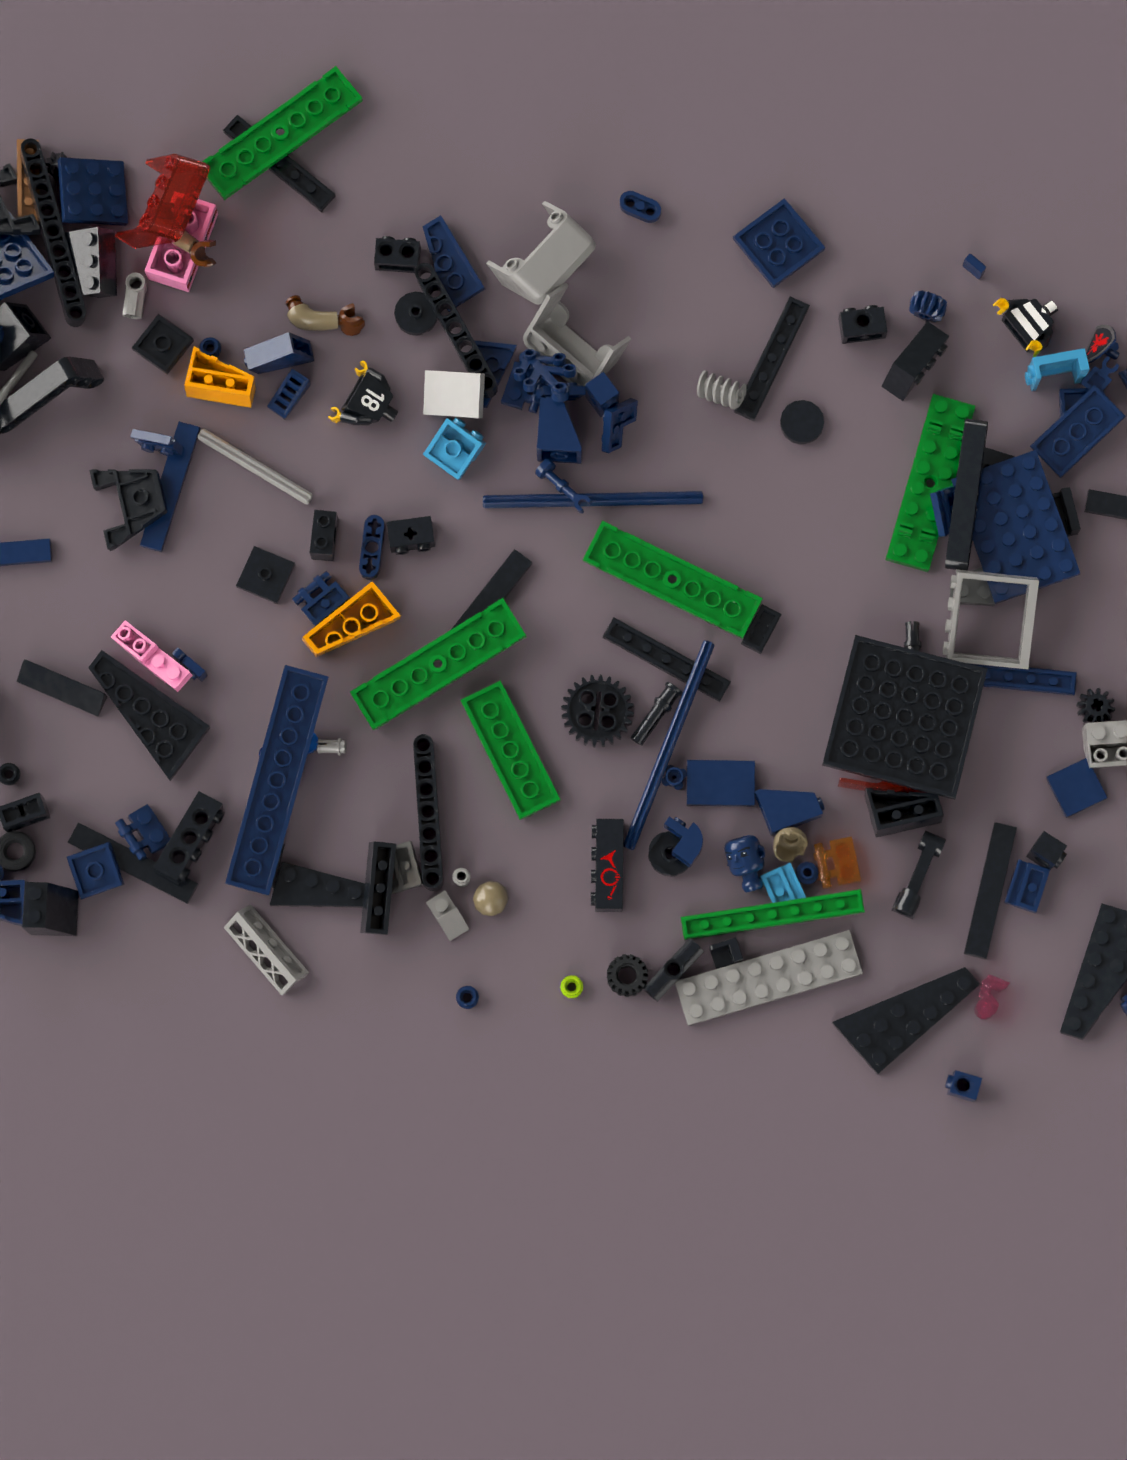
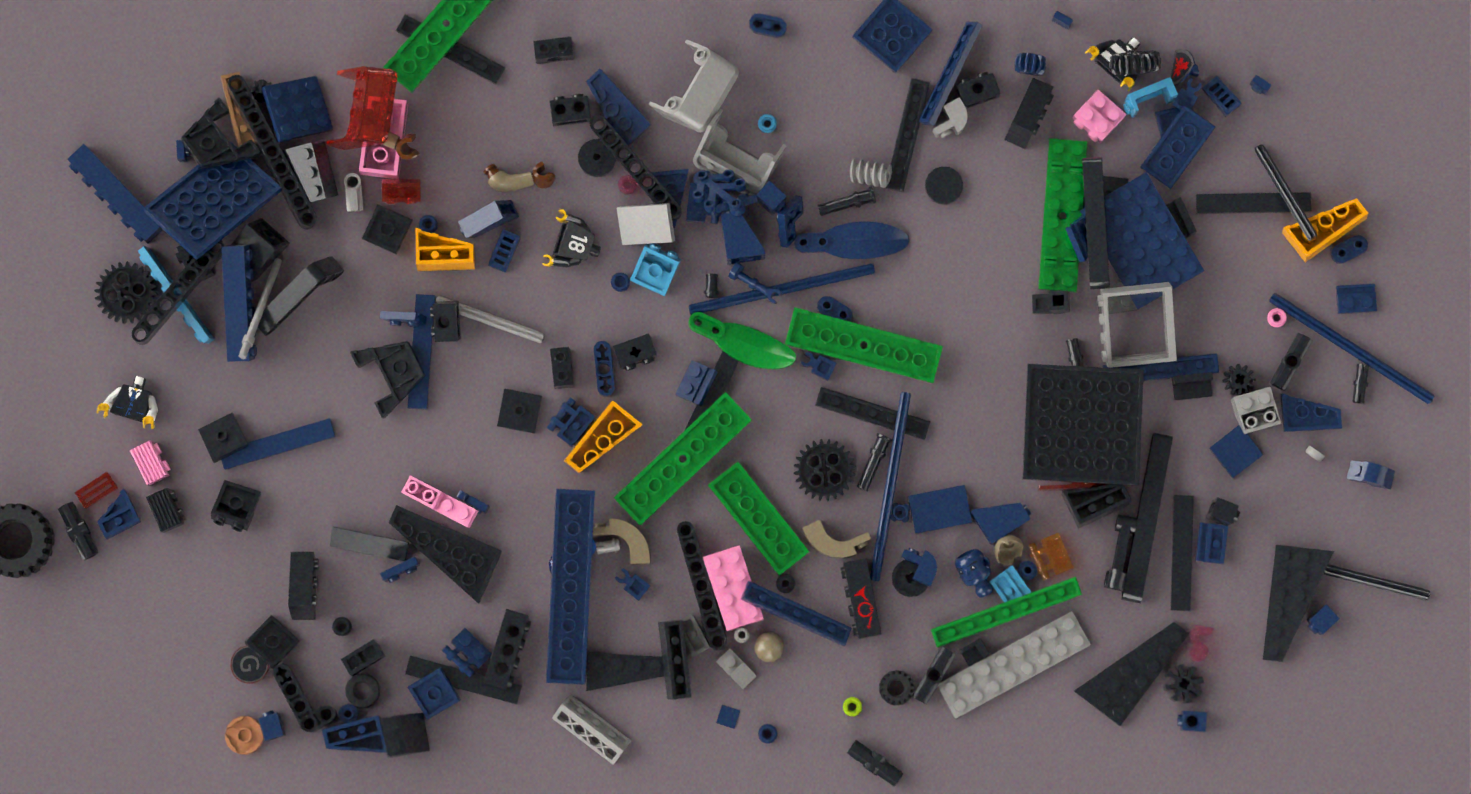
camera: 15 degrees left, 5 degrees up
(80, 725) = (392, 574): none -> dark blue plate
(187, 303) = (401, 191): none -> clear red brick
(211, 467) = (450, 310): none -> black brick
(351, 797) = (634, 586): none -> dark blue plate
(365, 751) = (631, 535): none -> dark tan arch
(393, 185) = (553, 50): none -> black brick
(411, 455) = (620, 282): none -> dark blue plate
(426, 968) = (728, 716): none -> dark blue sticker
(440, 344) = (627, 178): none -> clear pink plate
(463, 822) = (728, 579): none -> bright pink brick
(472, 584) = (696, 383): none -> dark blue plate
(513, 480) = (711, 286): none -> black pin
(525, 837) = (785, 589): none -> black plate
(529, 865) = (796, 613): none -> dark blue tile
(536, 549) = (744, 343): none -> green plant
(584, 1056) = (875, 763): none -> black piece
(587, 800) = (829, 547): none -> dark tan arch
(616, 307) = (767, 117): none -> dark azure plate
(618, 595) = (821, 367): none -> dark blue plate
(649, 533) = (835, 308): none -> dark blue plate
(688, 462) = (856, 240): none -> dark blue plant
(698, 417) = (856, 199): none -> black pin
(761, 629) = (946, 371): black plate -> none
(831, 351) = (956, 116): none -> light grey brick
(835, 299) = (950, 73): none -> dark blue tile
(899, 576) = (1054, 302): none -> black brick
(957, 842) = (1147, 517): none -> black beam
(967, 1045) = (1177, 680): none -> black gear
(993, 381) = (1098, 116): none -> bright pink plate
(1040, 703) = (1192, 386): none -> black panel
(1047, 323) = (1135, 62): none -> black gear

